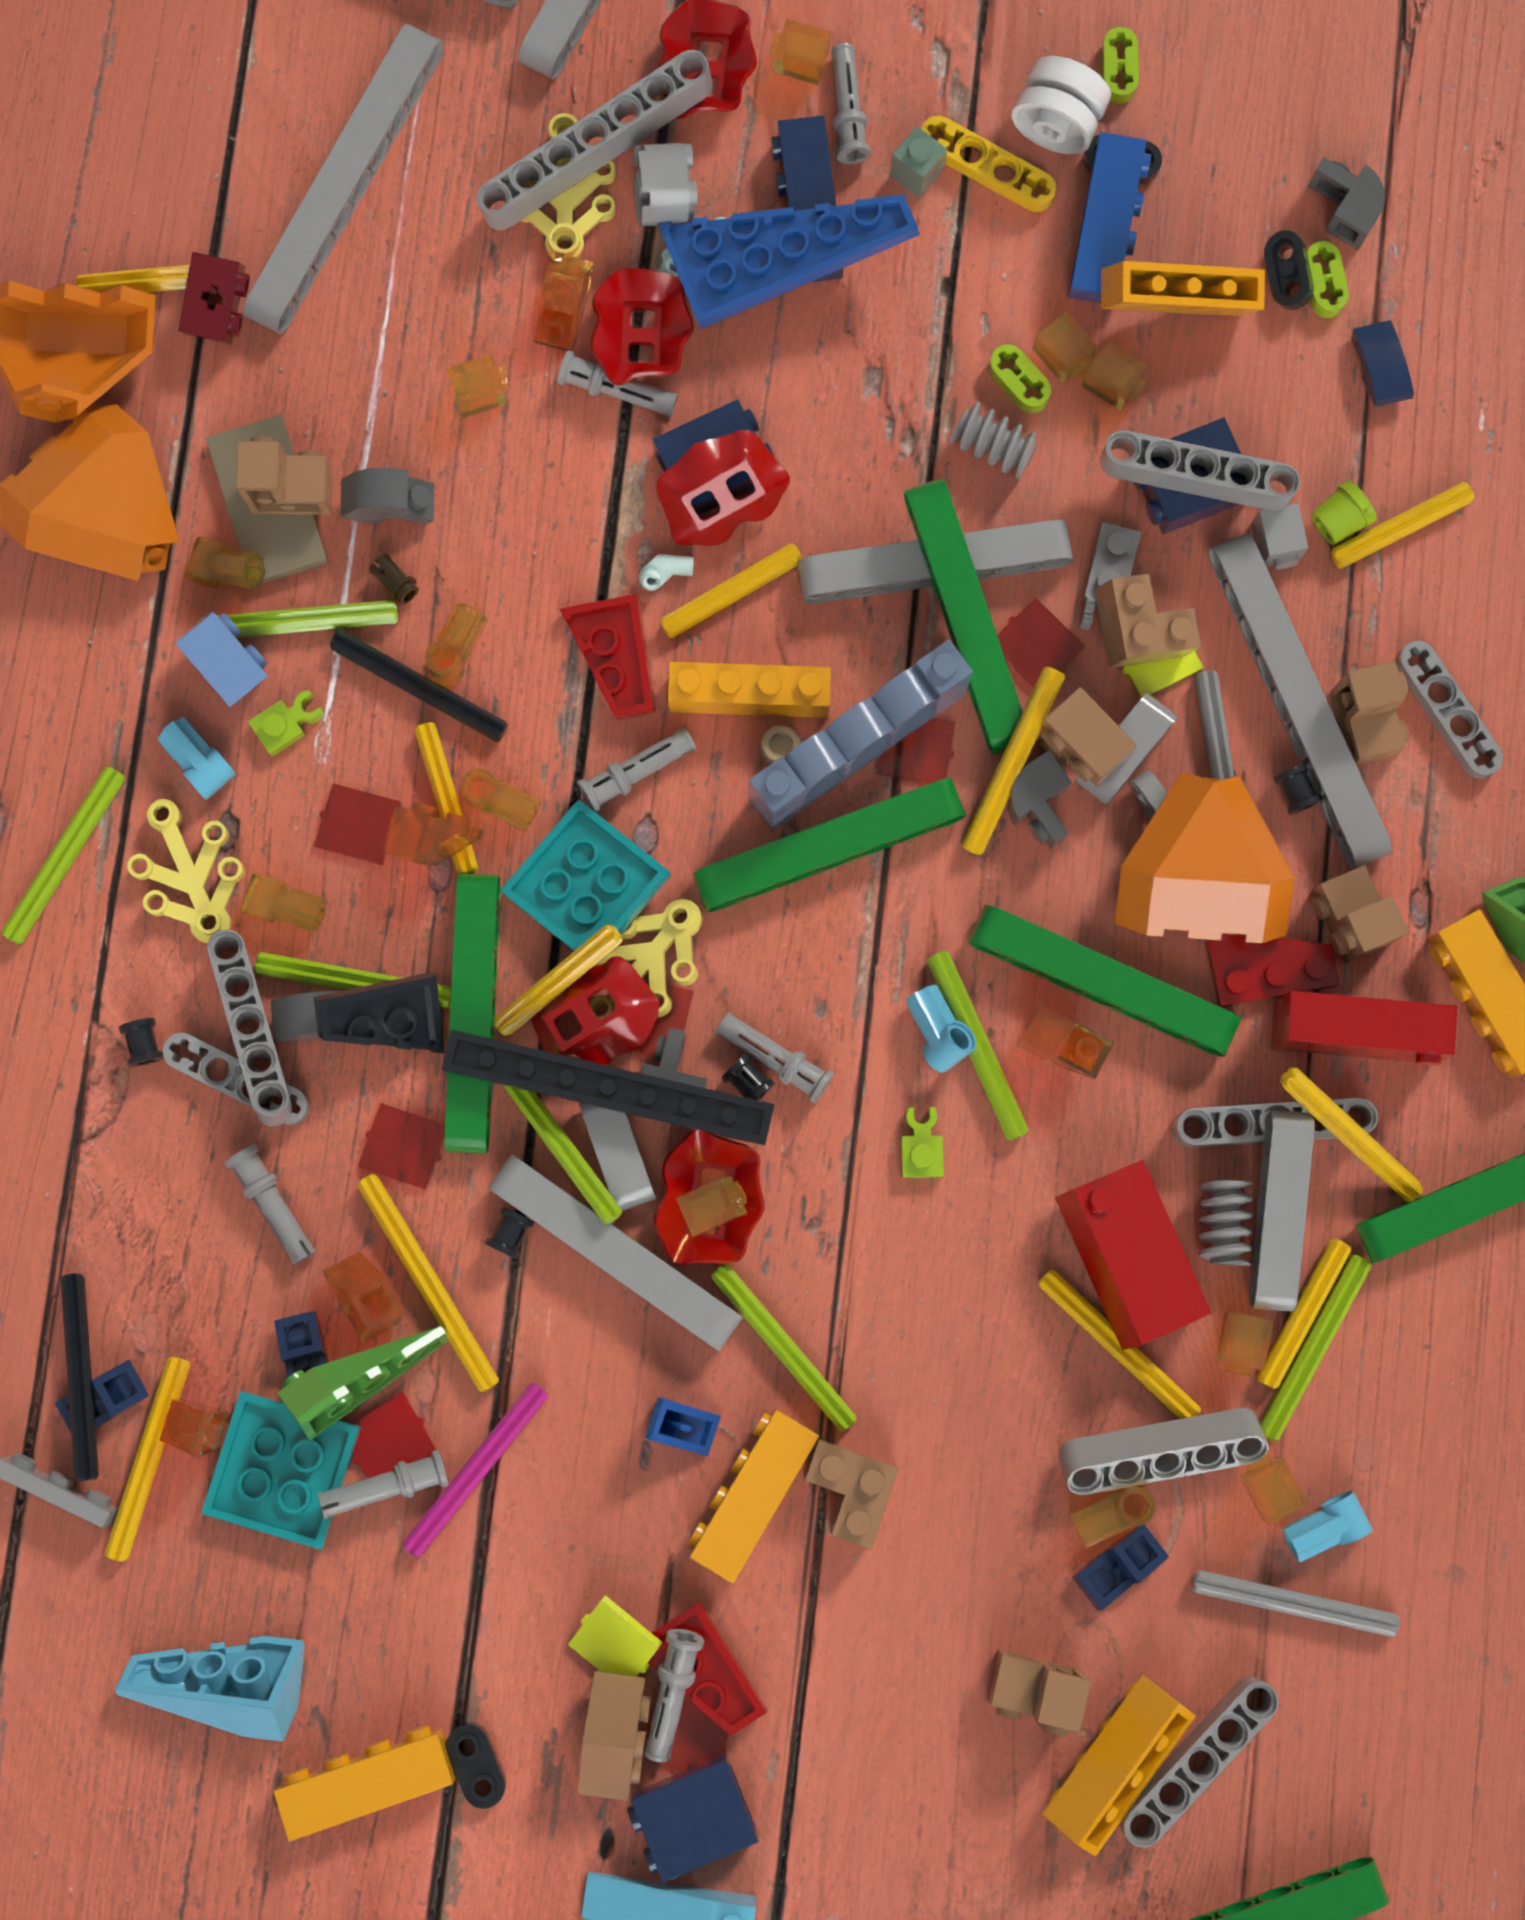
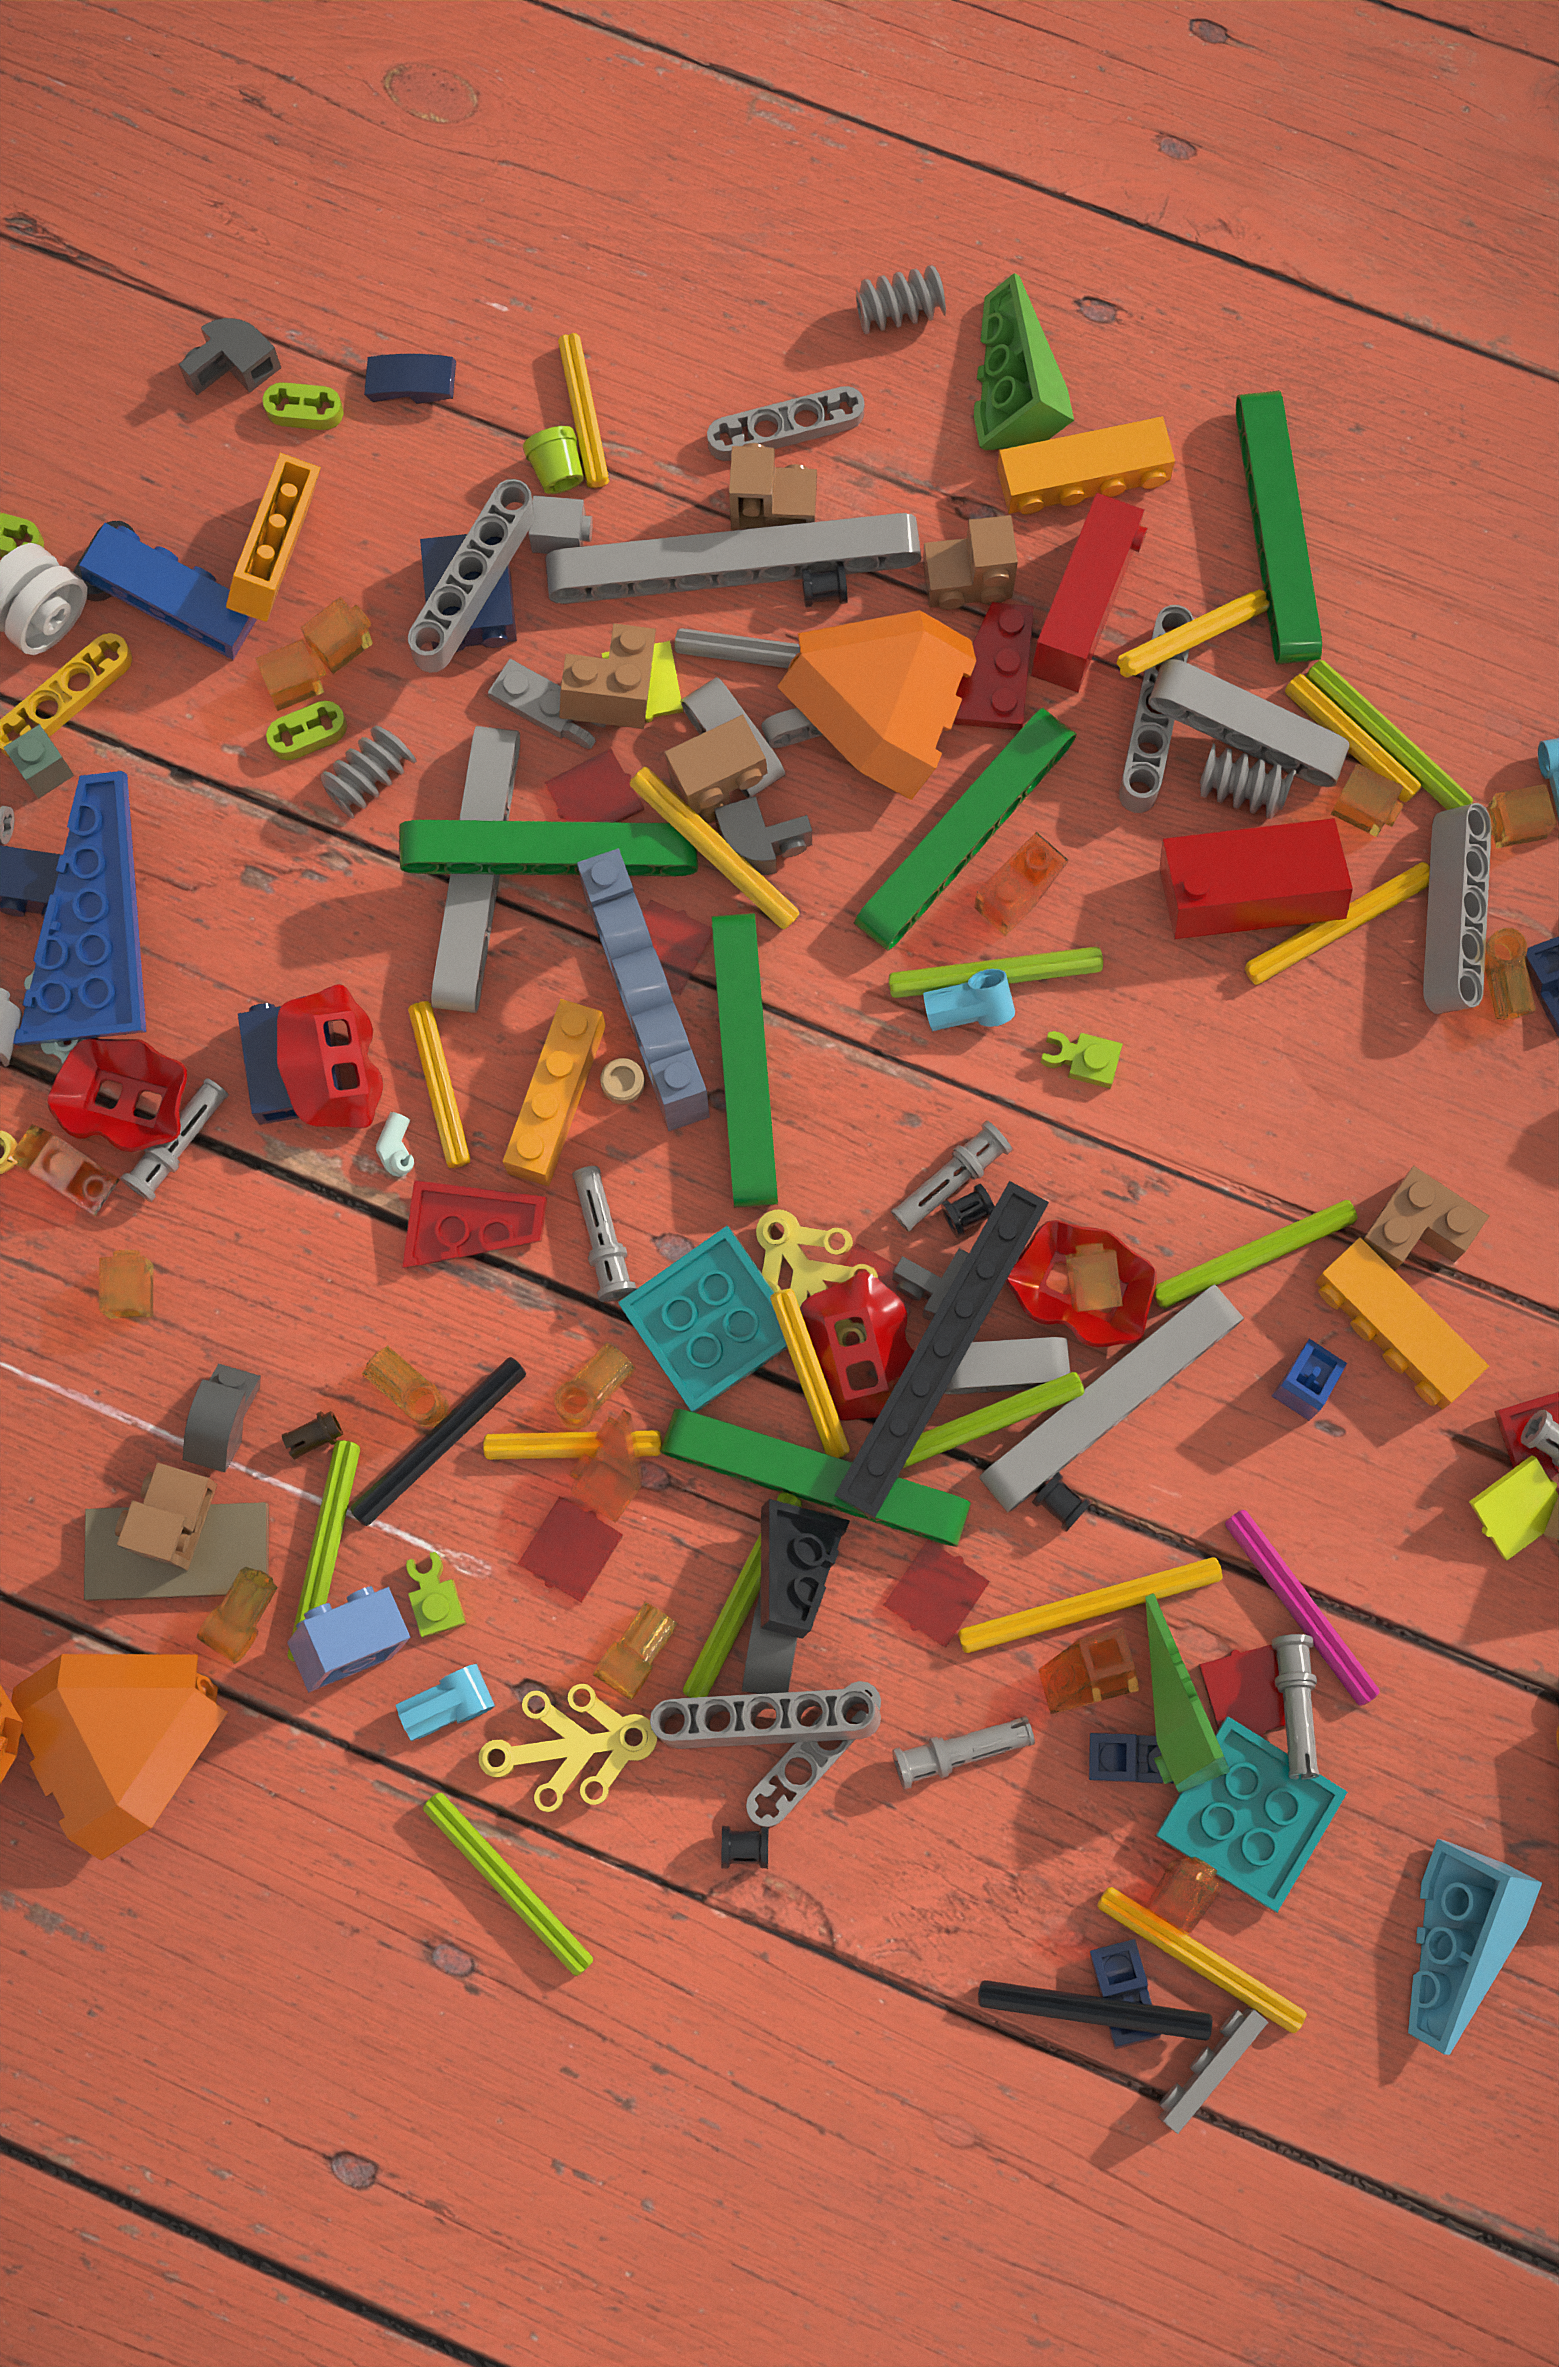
camera: 70 degrees left, 5 degrees down
(1290, 272) = (284, 435): black plate -> none

